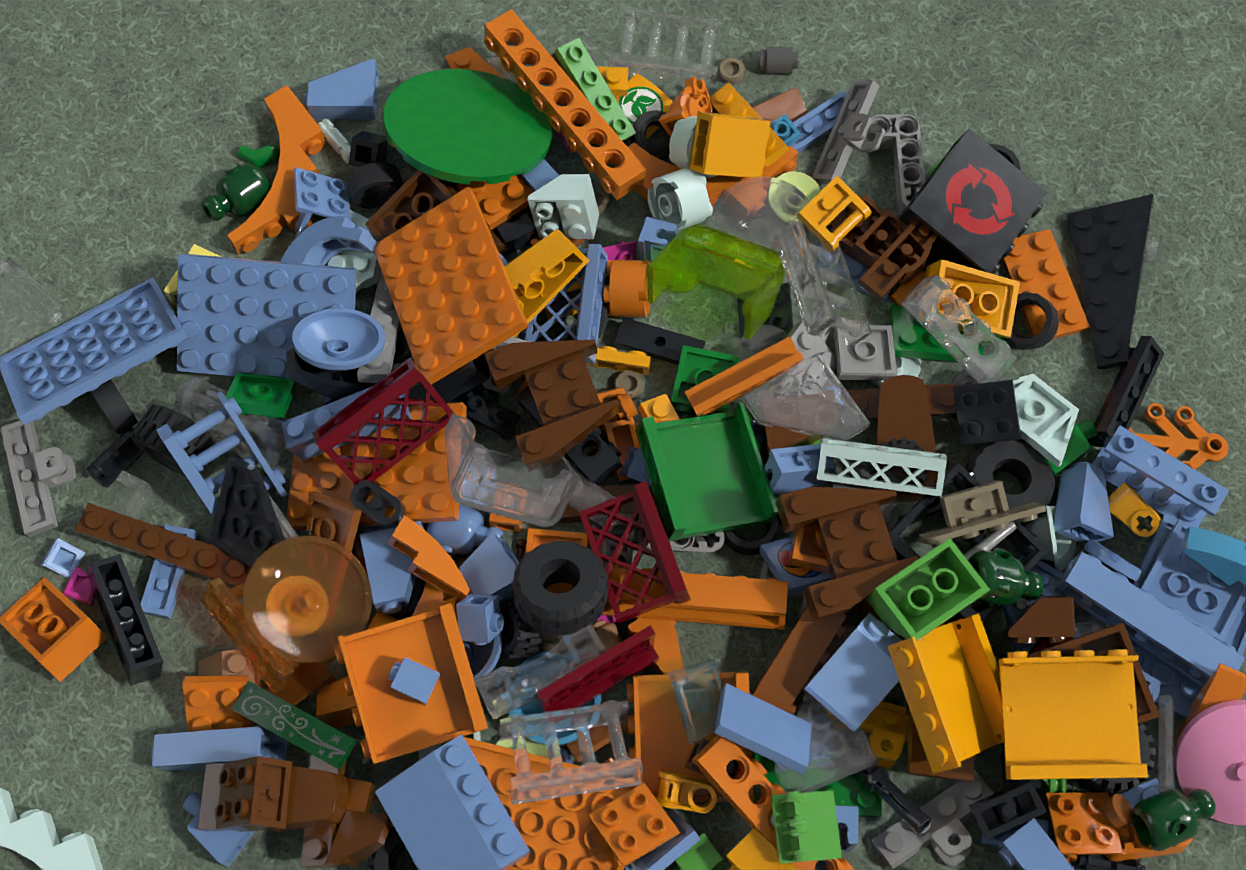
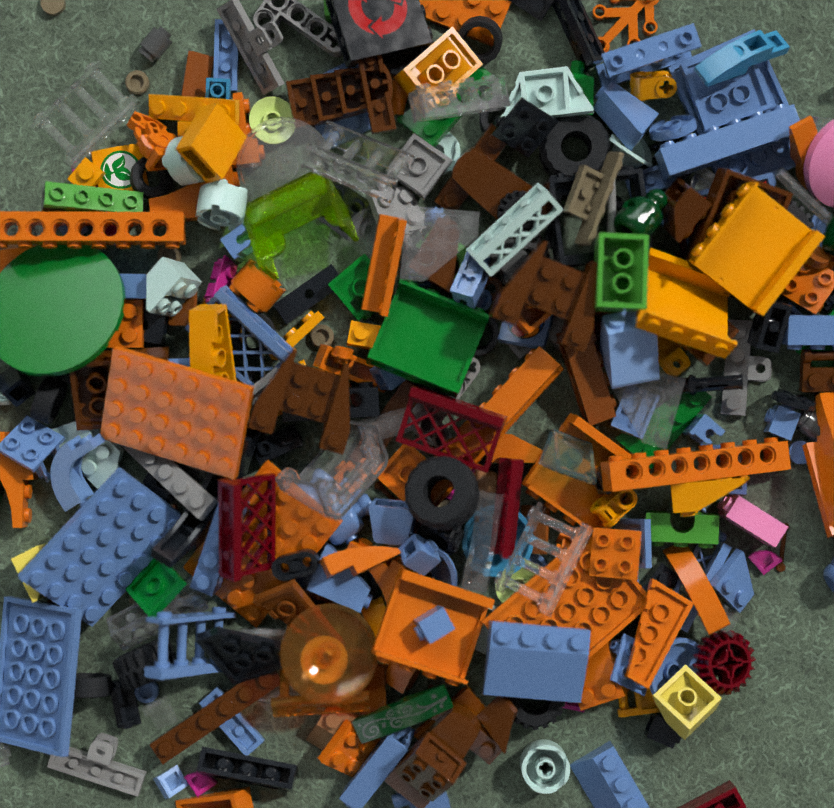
camera: 60 degrees left, 20 degrees up
(145, 468) = (147, 693): none -> medium blue tile
(338, 339) = (158, 509): medium blue dish -> none
(763, 728) = (620, 435): medium blue tile -> none
(806, 826) = (695, 455): bright green hinge -> none
(827, 206) = (304, 110): light orange plate -> none

